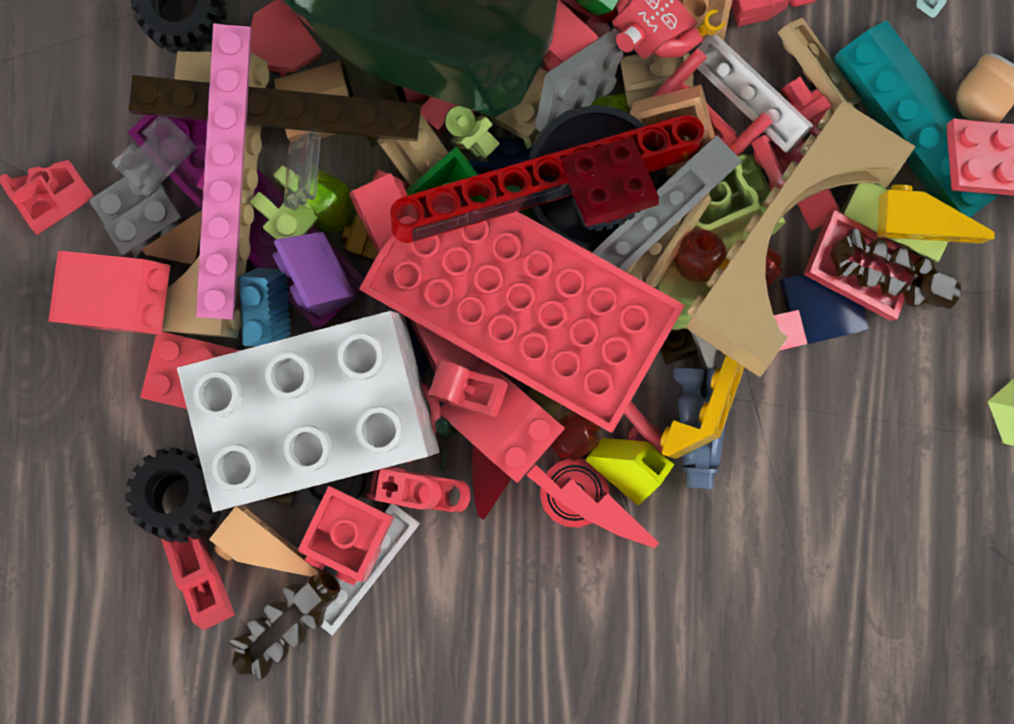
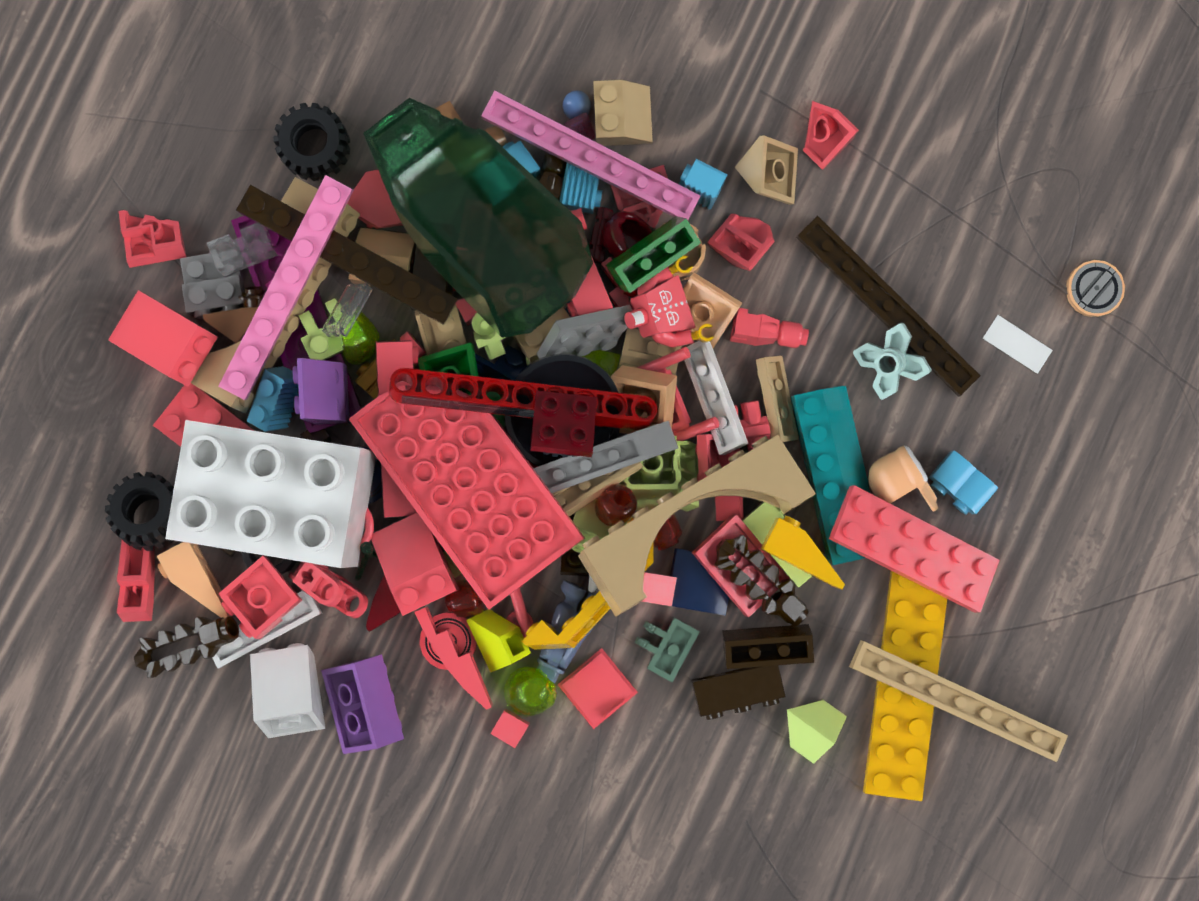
camera: 15 degrees right, 0 degrees up
(189, 204) = (252, 296): none -> dark brown plate
(419, 626) = (286, 691): none -> white slope
(467, 389) = (397, 529): coral plate -> none
(511, 605) = (362, 704): none -> medium lavender slope
(685, 559) = (510, 728): none -> coral slope
(690, 508) = (529, 691): none -> clear neon green hair
(761, 472) = (597, 688): none -> coral piece
(826, 392) = (672, 649): none -> sand green hinge
(920, 404) = (737, 690): none -> dark brown brick
(933, 341) = (768, 646): none -> dark brown brick

